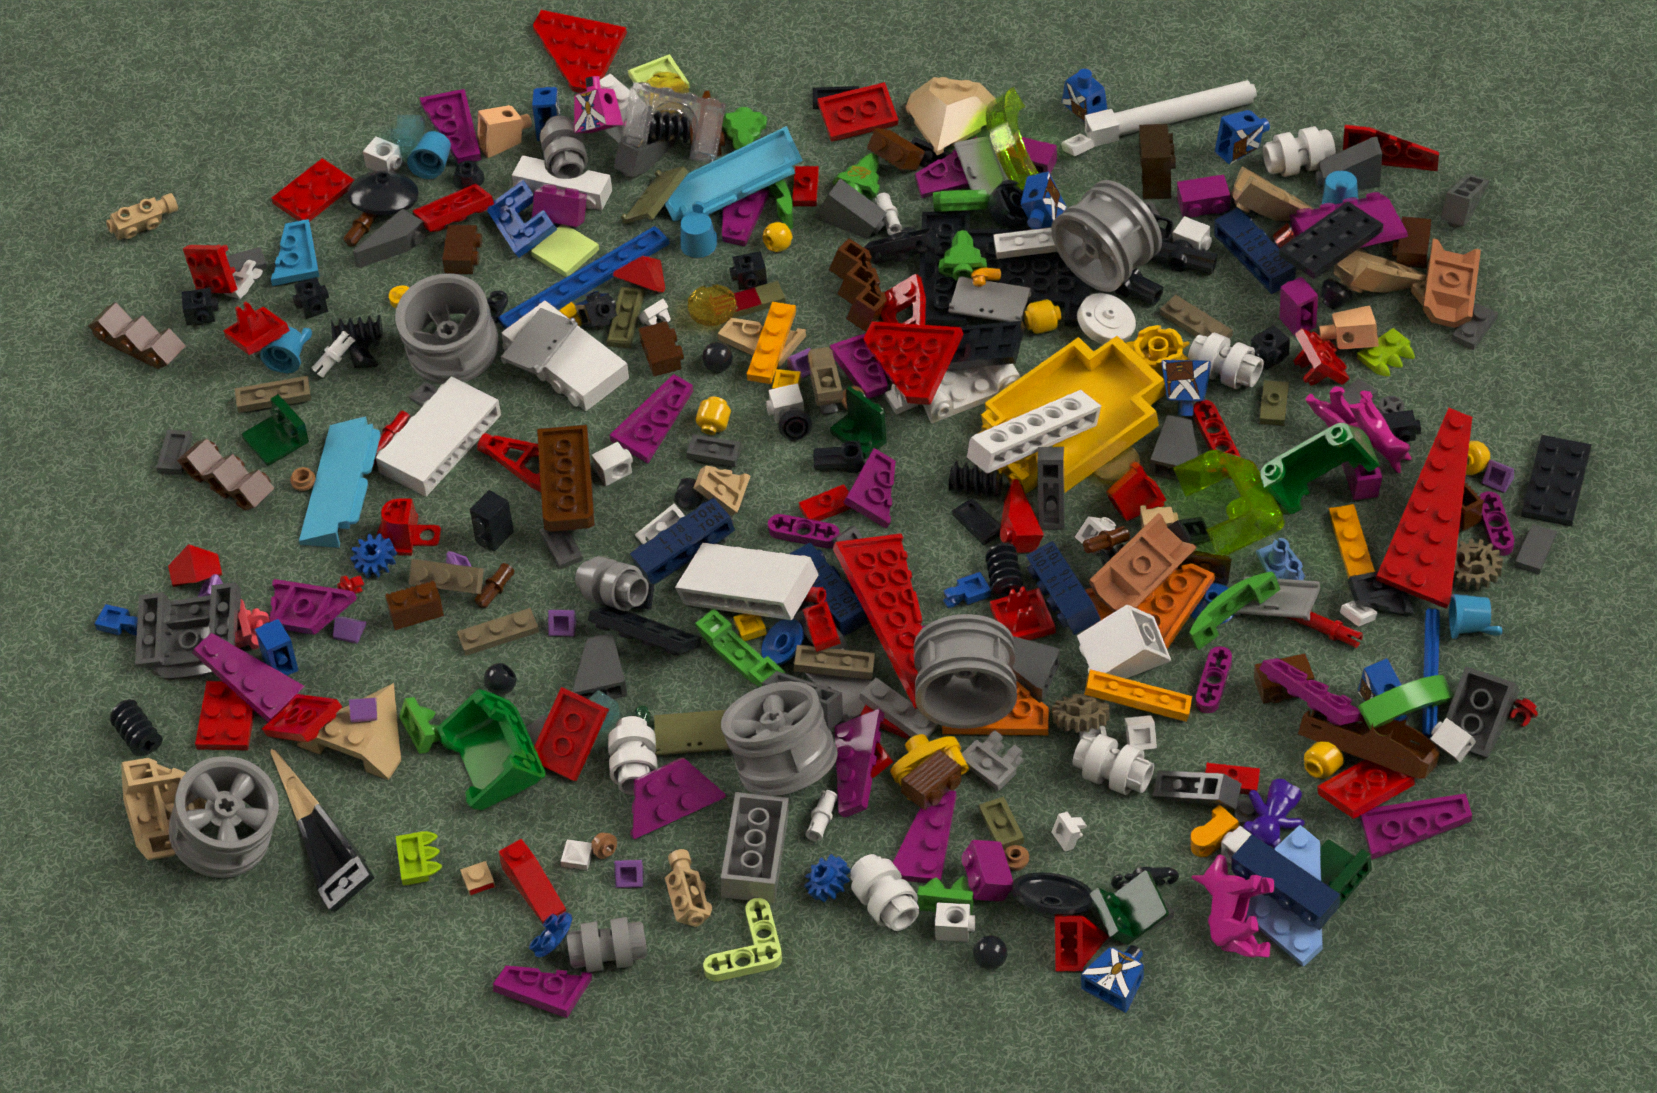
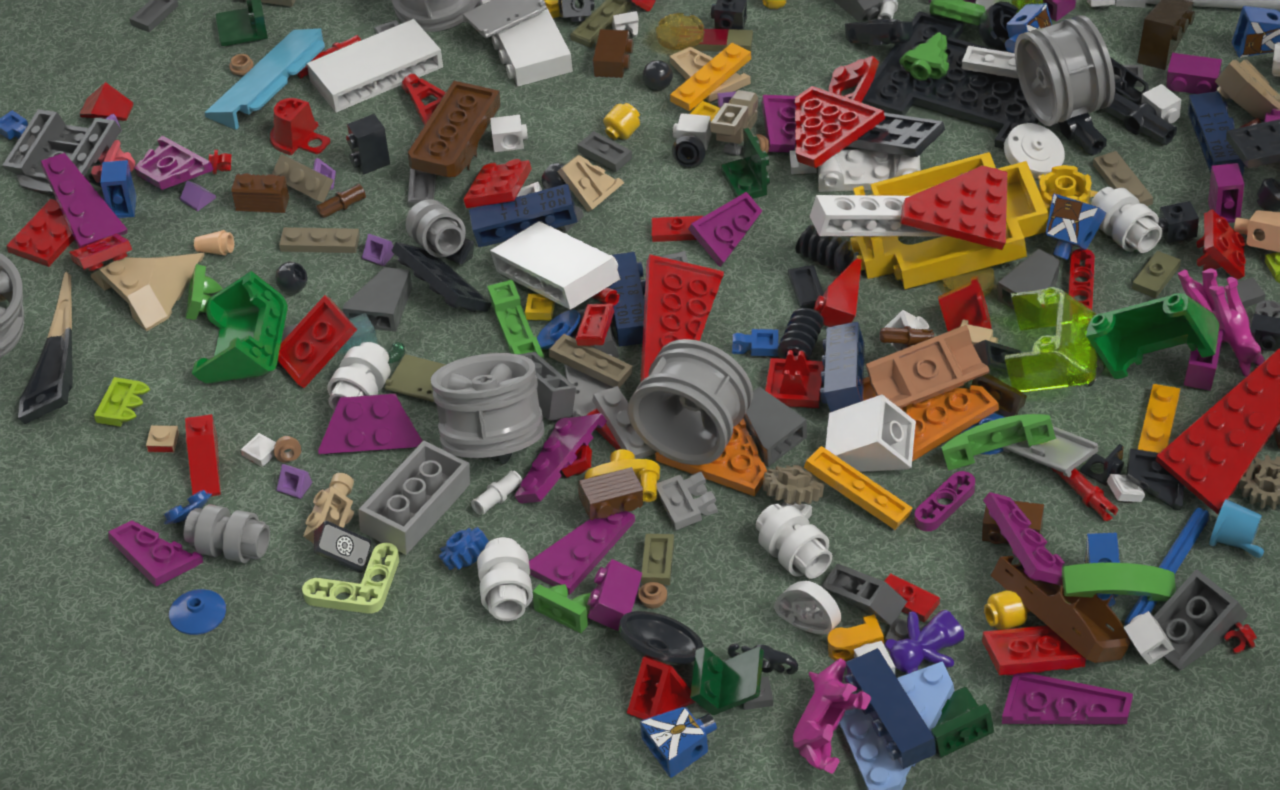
camera: 25 degrees right, 5 degrees down
(225, 474) = (179, 39): brick -> none
(363, 709) = (151, 258): medium lavender slope -> none
(373, 555) = (255, 143): blue gear -> none
(400, 670) = (215, 243): none -> light nougat cone
(618, 1035) = (200, 619): none -> blue dish
(639, 518) = (497, 183): none -> red plate
(653, 419) = (566, 110): magenta wing -> none
(719, 917) = (341, 546): none -> slope
(798, 523) = (638, 235): magenta beam -> none
(846, 457) = (716, 192): black piece -> none
(859, 283) = (820, 51): reddish brown brick -> none
(948, 913) = (554, 630): white brick -> none
(982, 274) = (932, 76): light orange arm -> none
(990, 952) = (571, 670): black piece -> none
(1004, 300) = (932, 100): light grey door -> none
(1042, 316) = (974, 130): yellow head -> none
(1051, 487) = (885, 273): dark grey slope -> none
(1067, 830) = (717, 587): white tile -> none
(1094, 401) = (963, 207): none -> red plate
(1141, 732) = (839, 522): white brick -> none
(1158, 820) = (808, 608): none -> white piece
(1281, 560) = (1075, 414): medium blue connector -> none
(1337, 599) = (1112, 465): none -> black bracket

